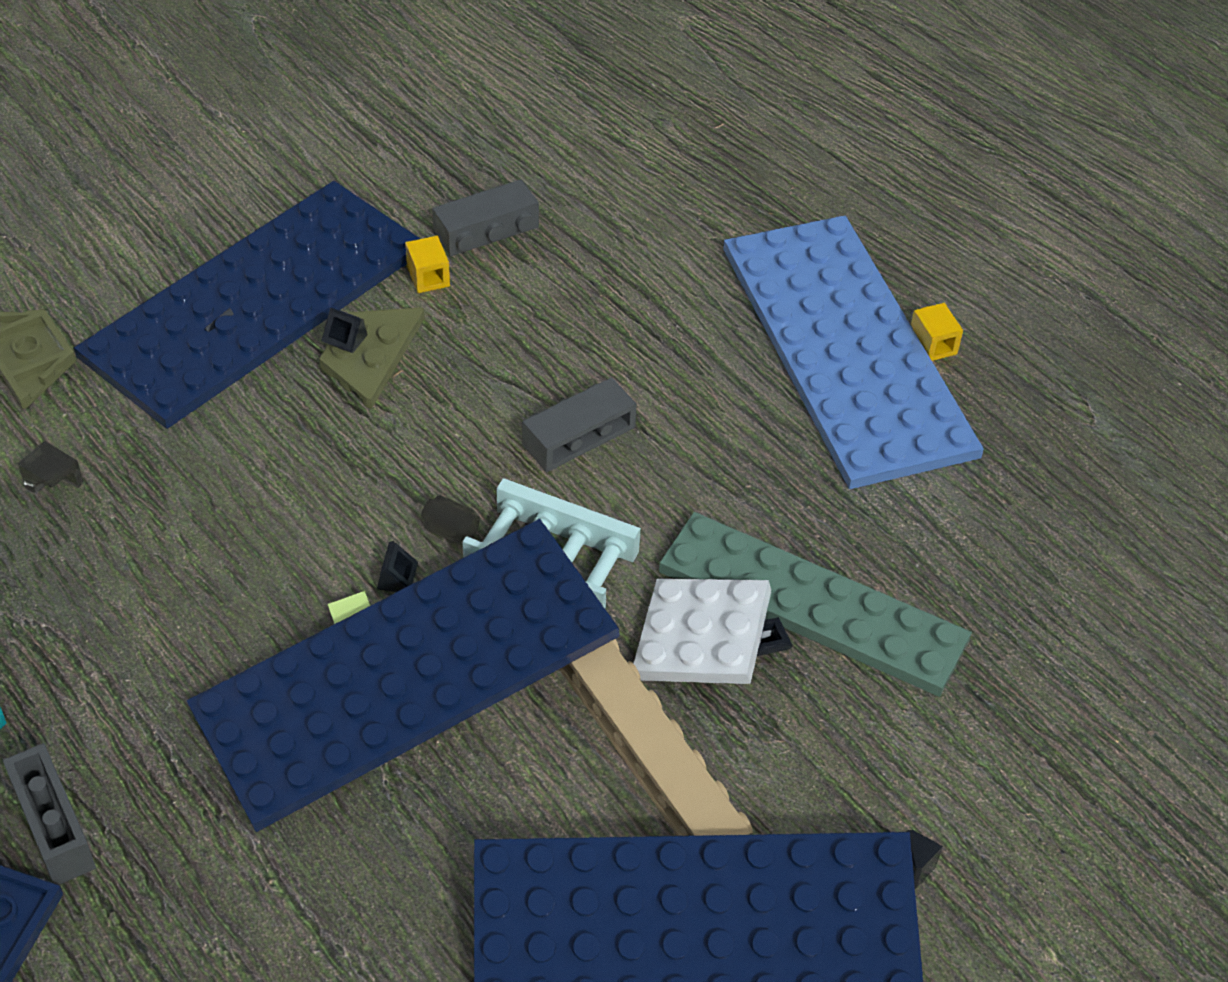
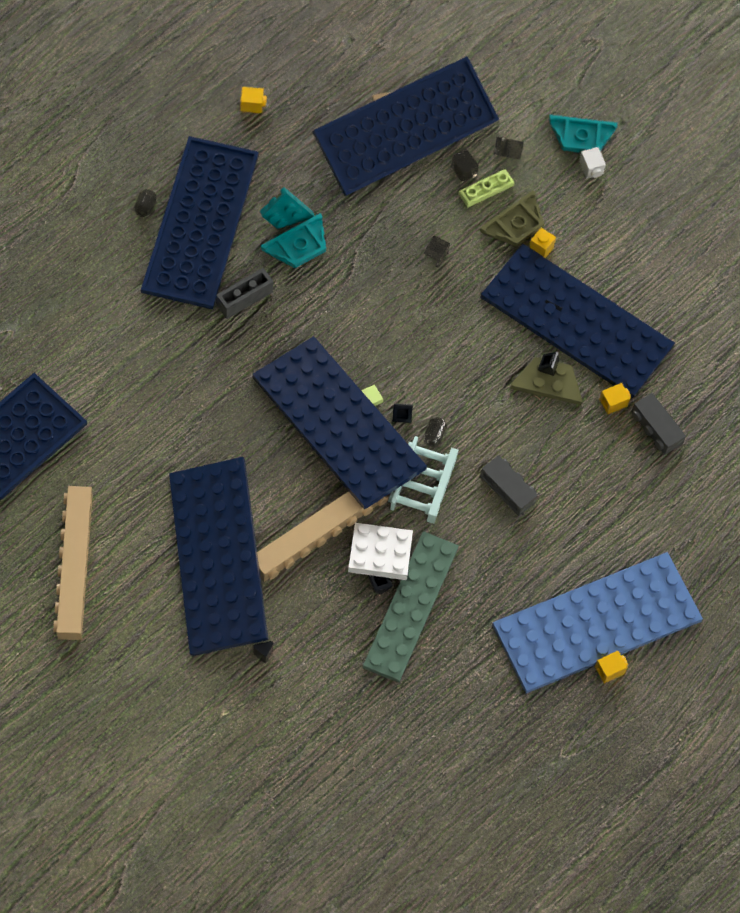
camera: 80 degrees right, 15 degrees up
(85, 314) = (542, 242): none -> yellow brick

